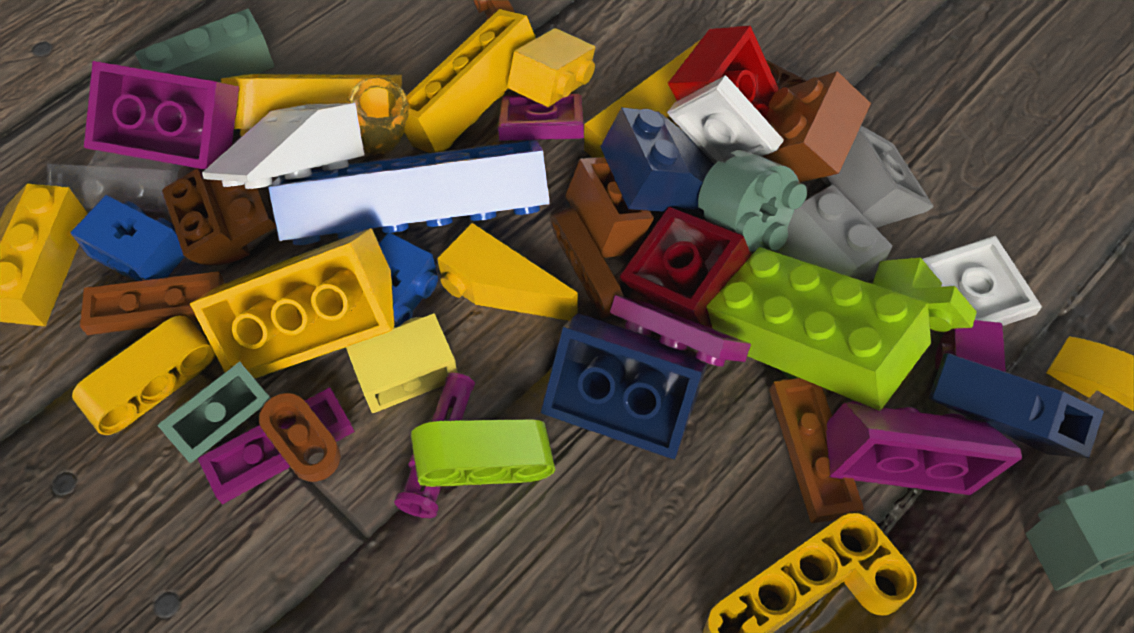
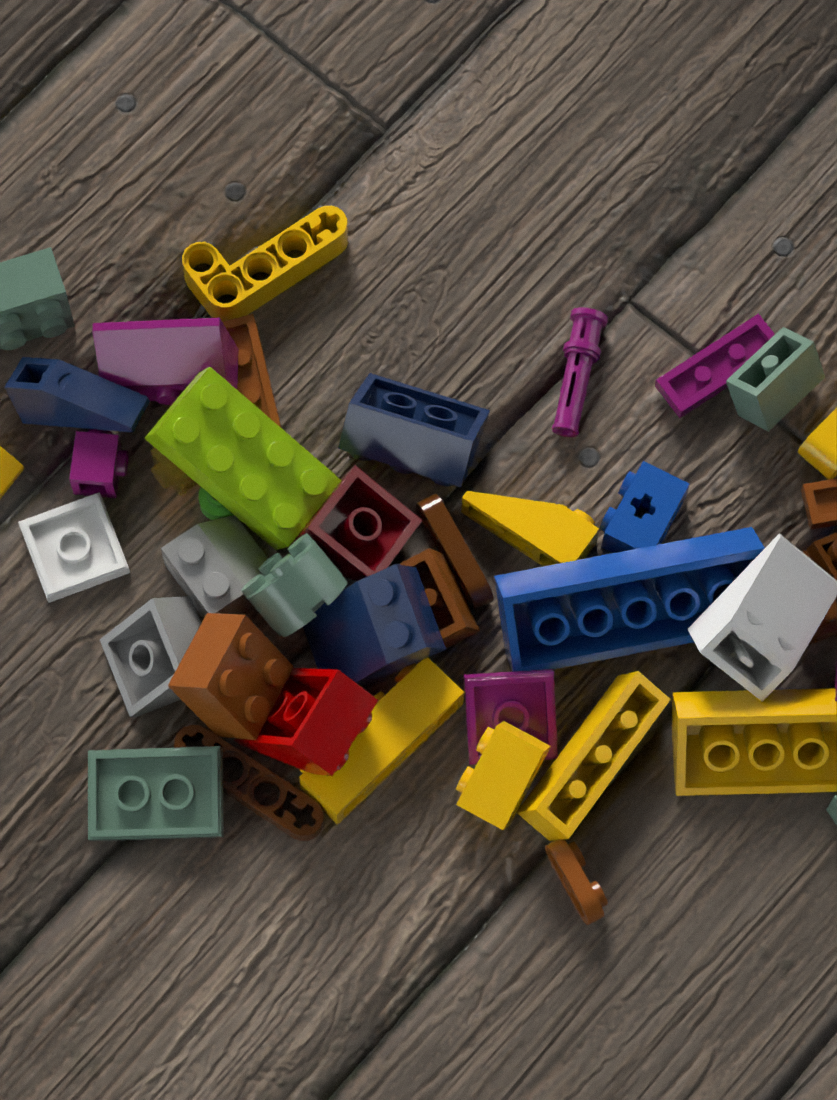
camera: 175 degrees right, 10 degrees up
(300, 307) = (720, 468): yellow slope -> none
(300, 440) = (698, 353): dark orange plate -> none
(384, 133) = (681, 671): clear yellow piece -> none
(402, 362) = (619, 441): light yellow brick -> none
(481, 452) = (535, 349): lime beam -> none
(679, 332) = (351, 444): magenta plate -> none
(724, 121) = (314, 652): white tile -> none
(880, 73) = (155, 793): none -> sand green tile
(914, 278) = (152, 505): lime brick -> none

